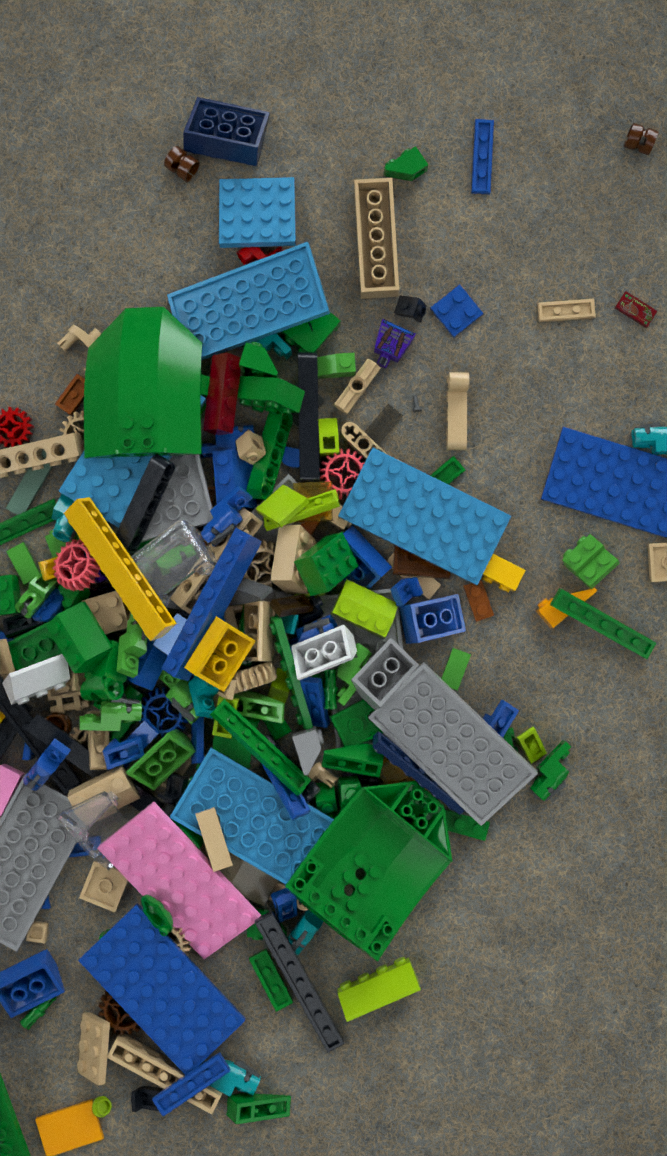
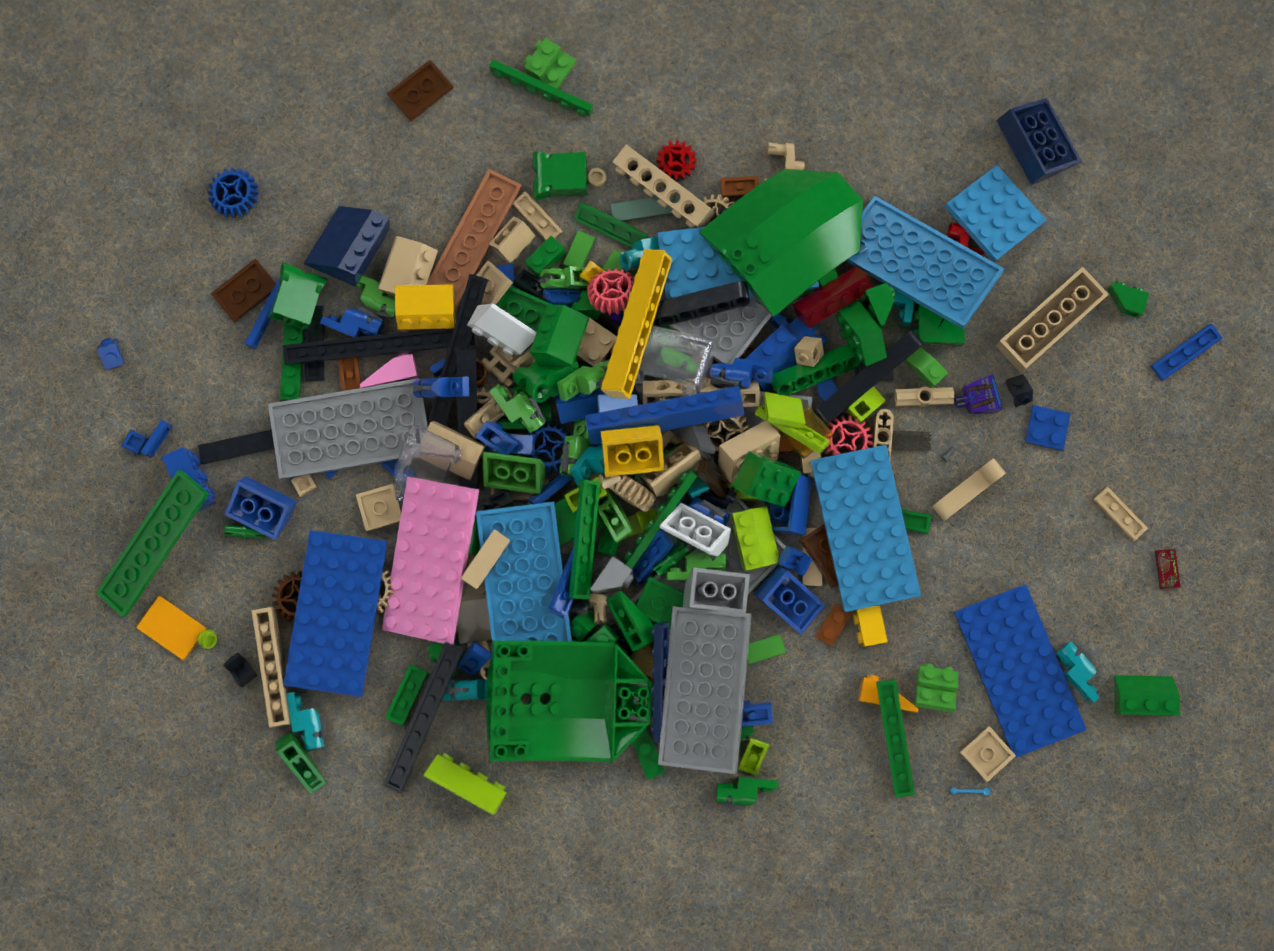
camera: 50 degrees right, 5 degrees down
(93, 1048) = (249, 596): tan plate -> none
(157, 914) = (392, 562): green arm -> none
(179, 162) = (984, 125): reddish brown wheel -> none
(191, 1084) = (281, 692): blue tile -> none

